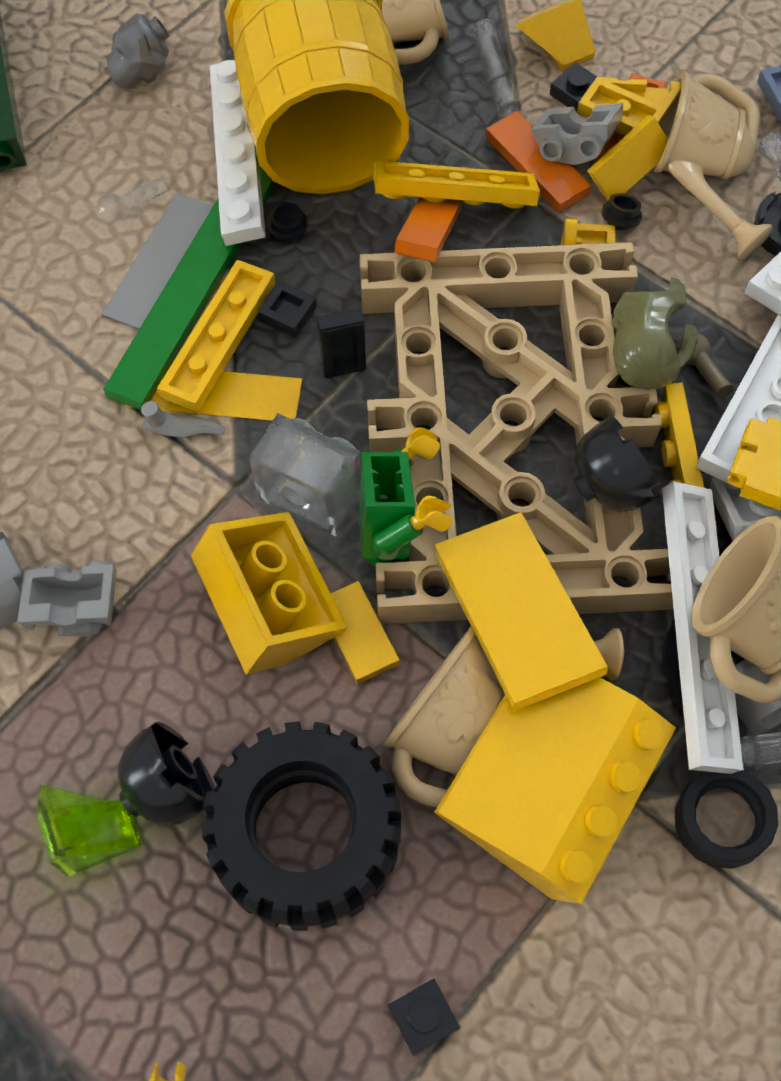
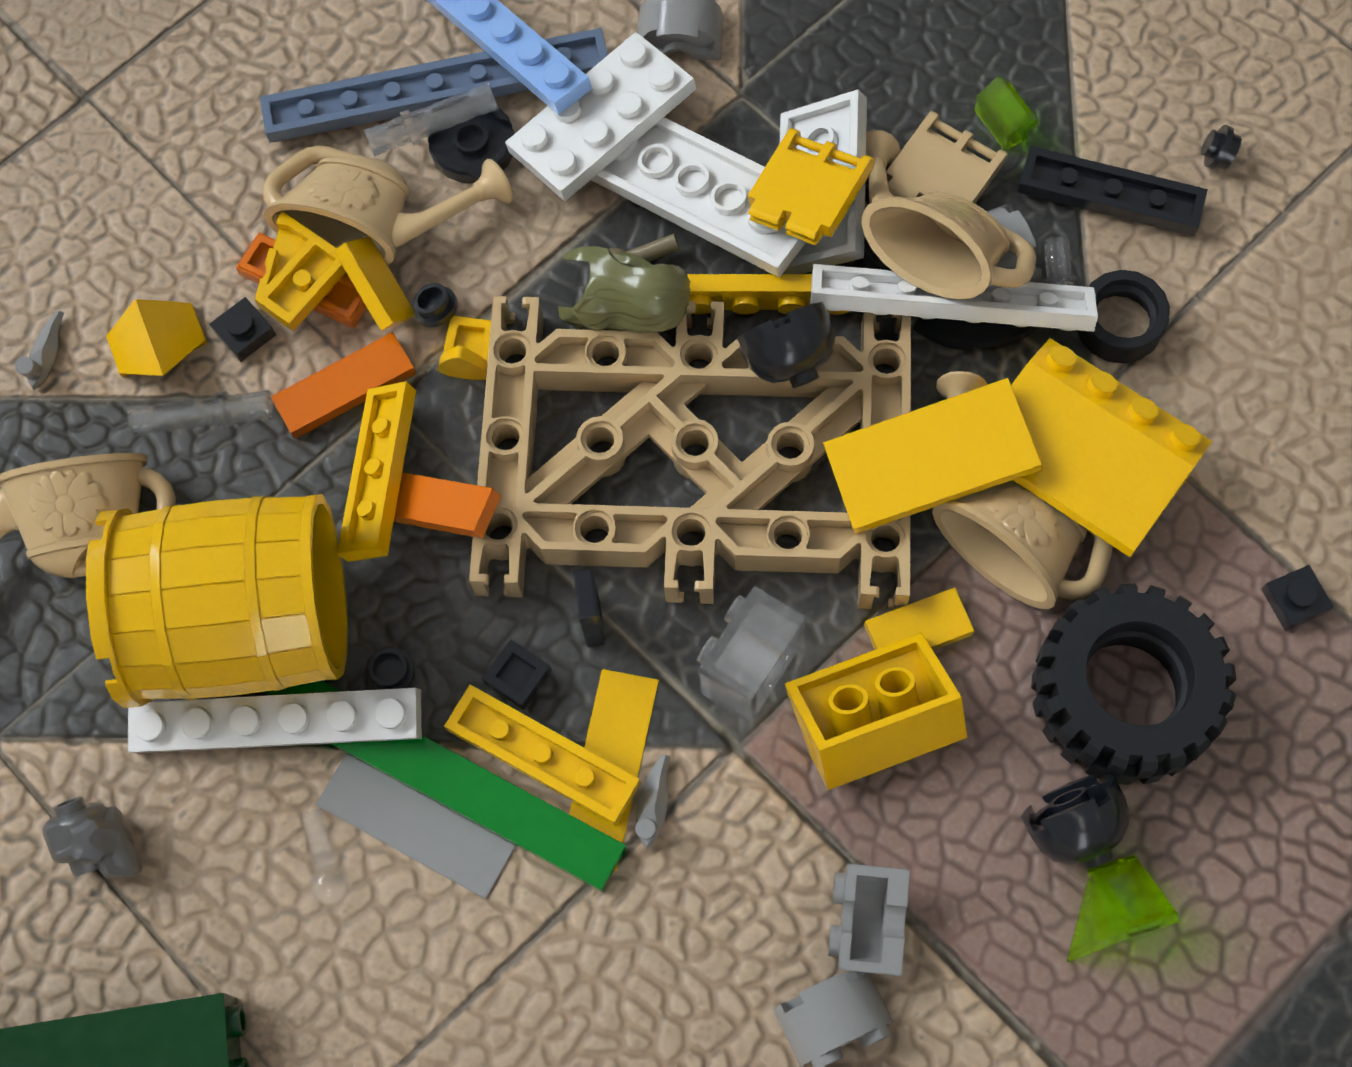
camera: 80 degrees left, 5 degrees up
(388, 501) = (808, 569): green torso -> none
(574, 138) = (332, 332): light grey cylinder -> none

